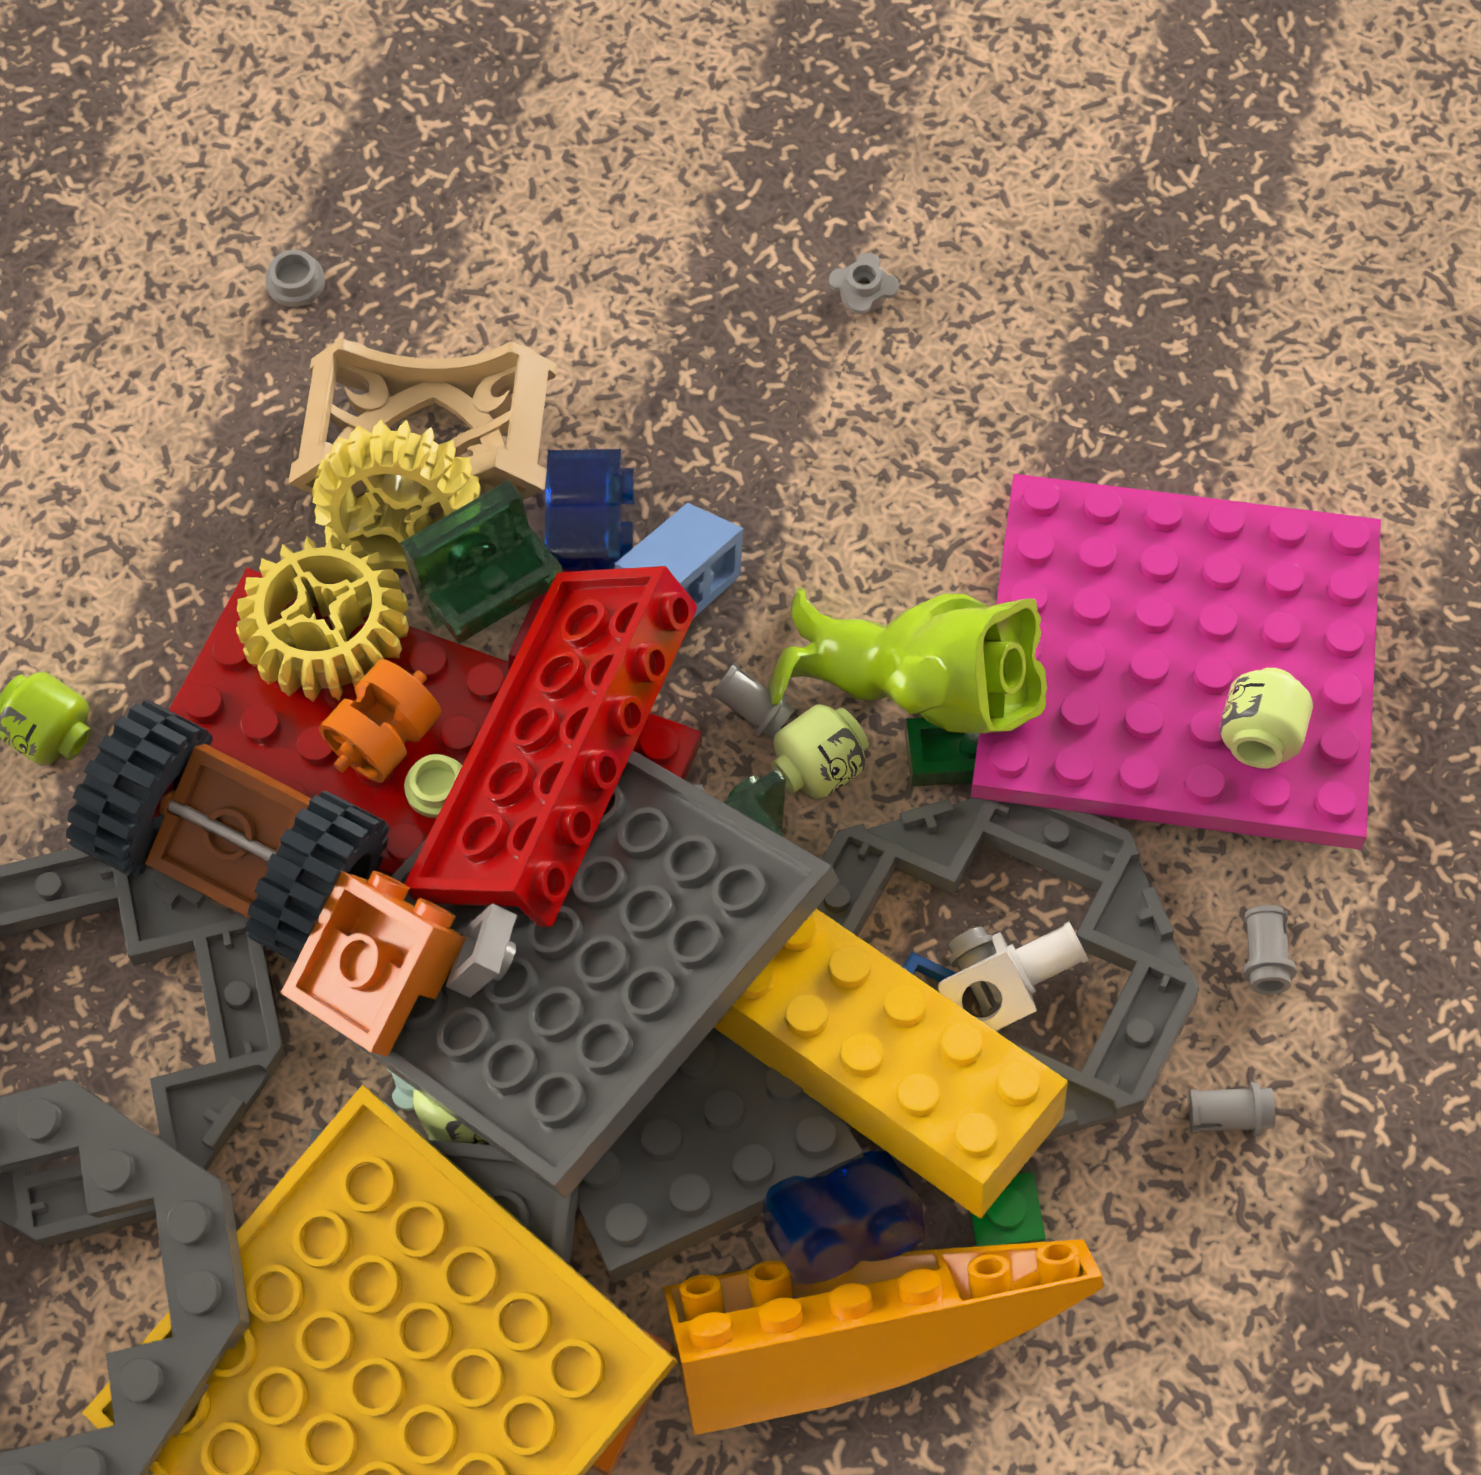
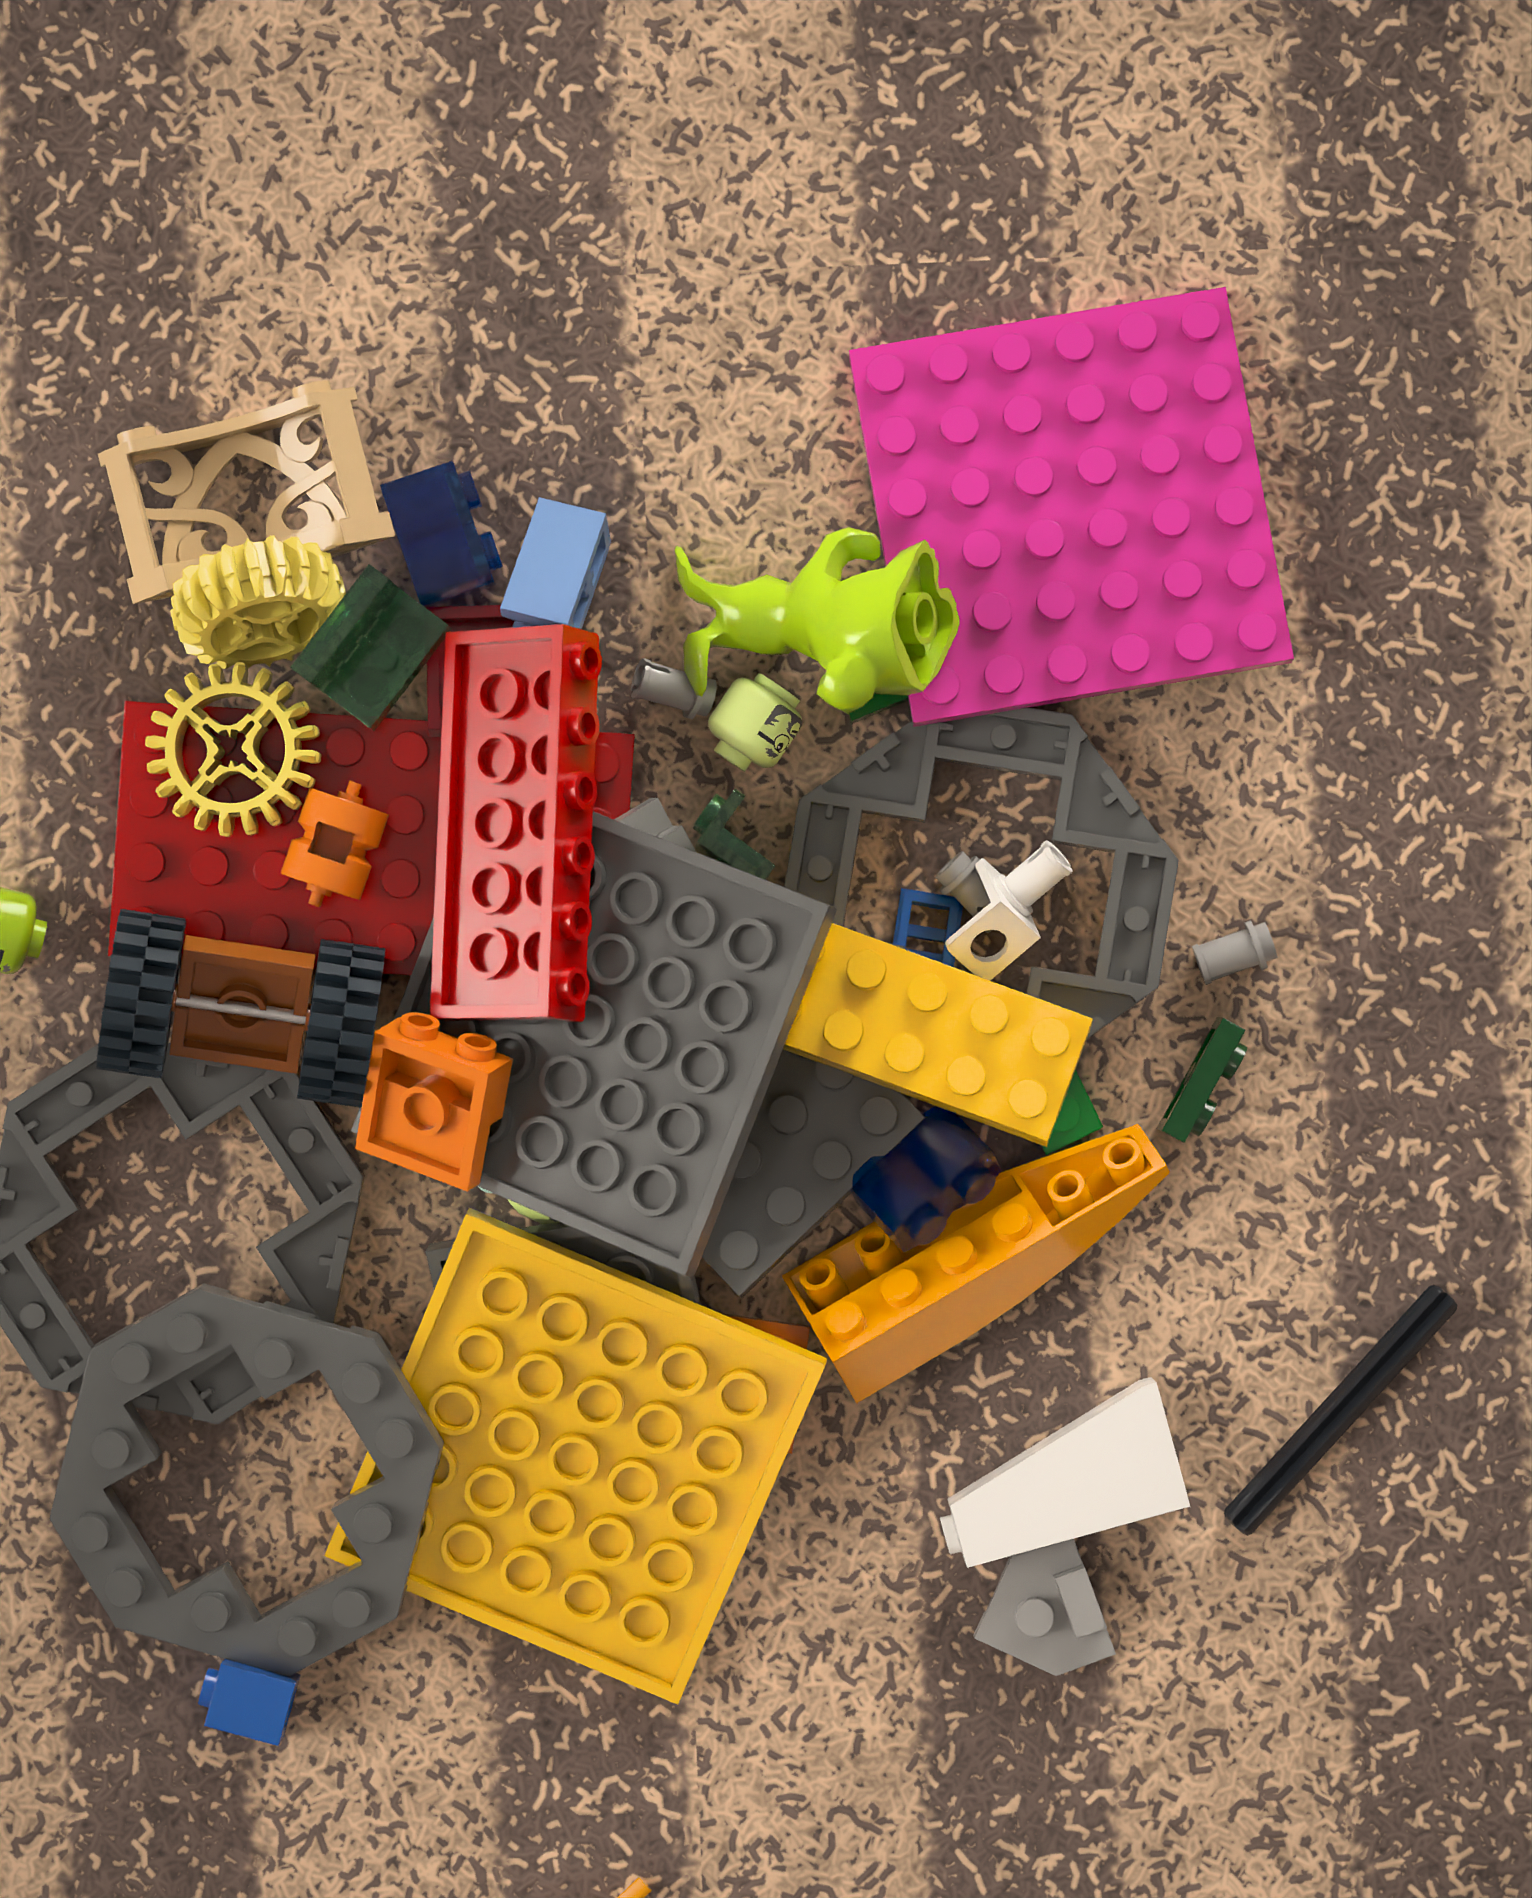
camera: 25 degrees left, 25 degrees up
(295, 278) = (33, 349): light grey plate -> none
(430, 783) = (408, 884): yellowish green plate -> none
(485, 951) = (535, 1069): light grey plate -> none
(868, 297) = (628, 185): light grey plate -> none
(1184, 1203) = (1217, 1057): none -> dark green plate
(1266, 717) = (1173, 579): yellowish green head -> none
(1268, 950) = (1229, 786): light grey pin -> none

